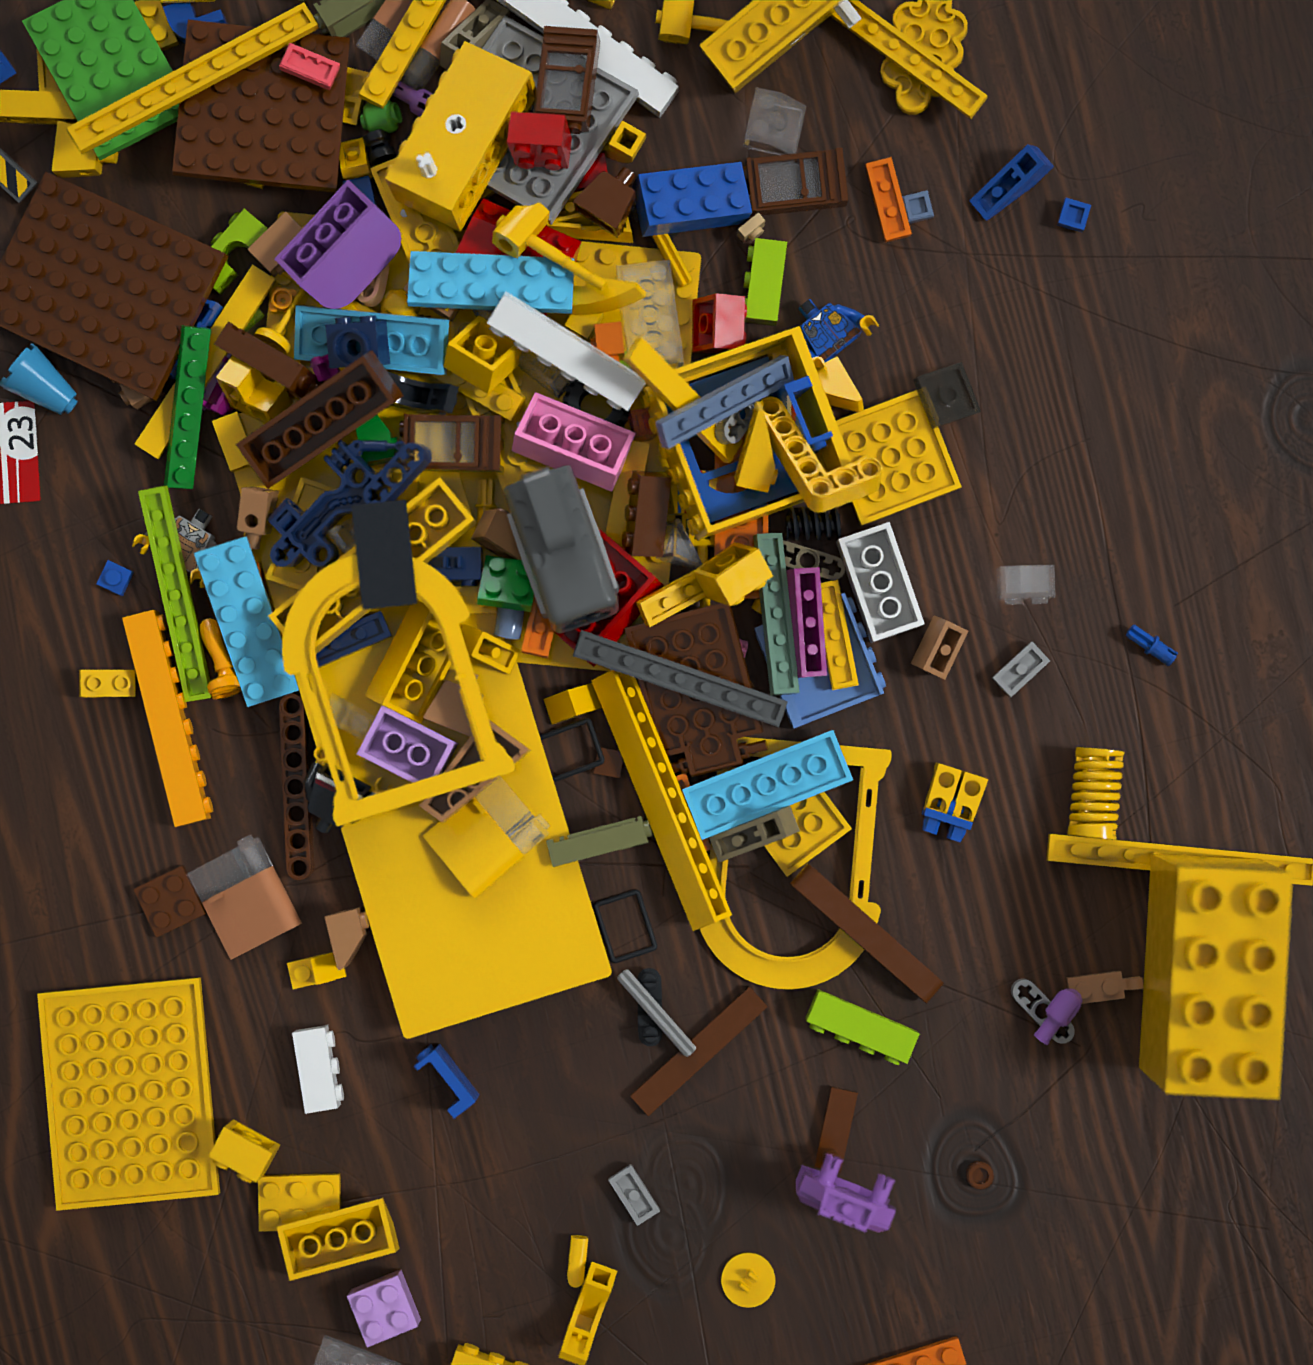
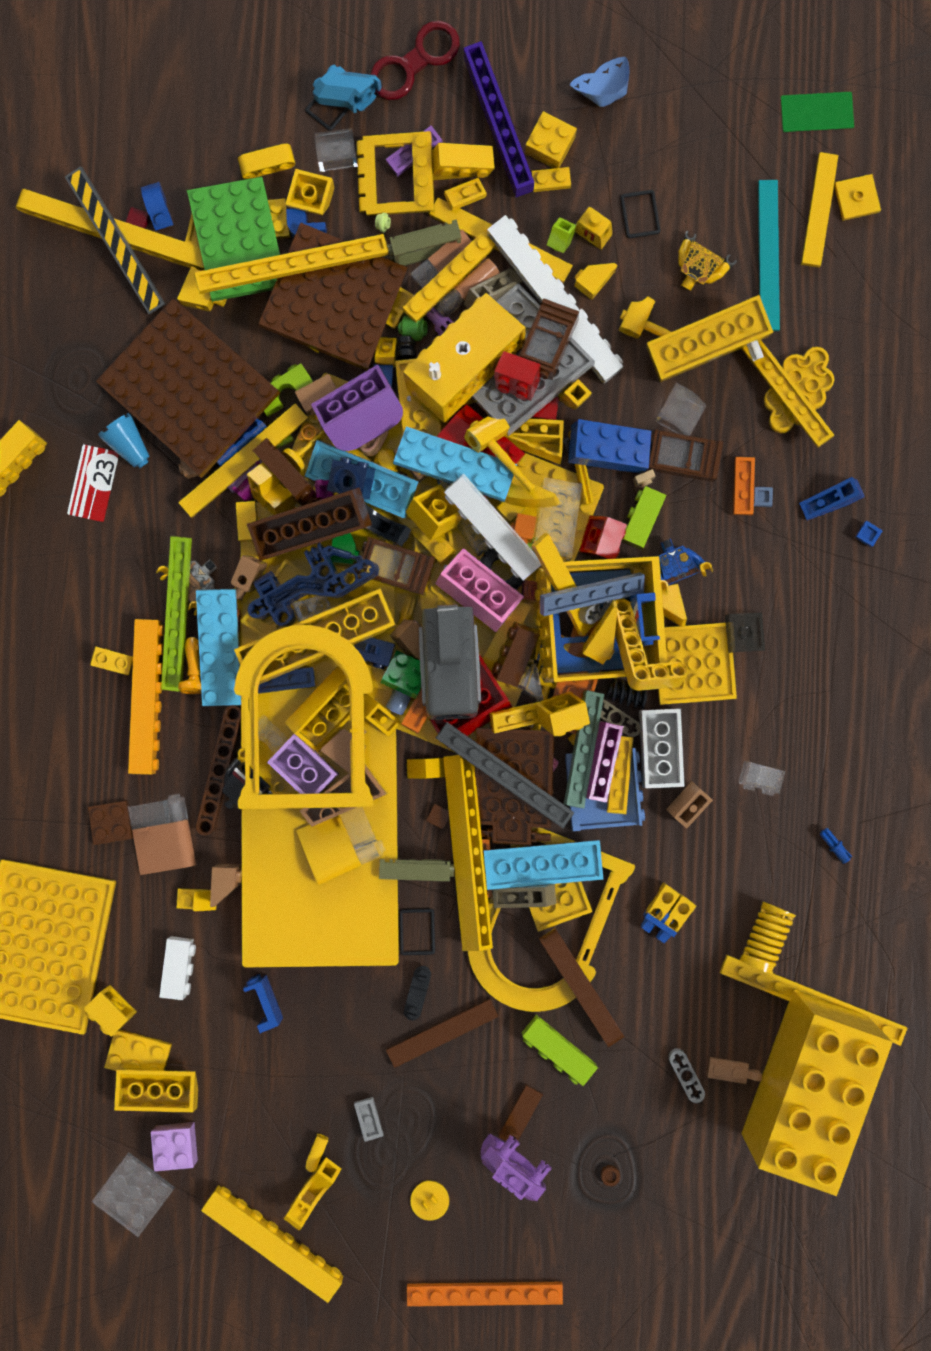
camera: 15 degrees right, 0 degrees up
(115, 578) = (138, 590): blue plate -> none
(187, 407) = (221, 488): green plate -> none
(309, 66) = (374, 279): coral plate -> none
(384, 554) = (326, 631): black sticker -> none
(596, 743) = (433, 800): black piece -> none
(608, 200) = (552, 431): reddish brown torso -> none
(656, 1012) = (420, 999): light grey axle -> none
(1020, 669) = (740, 836): light grey plate -> none
(1059, 1013) = (698, 1081): medium lavender arm -> none

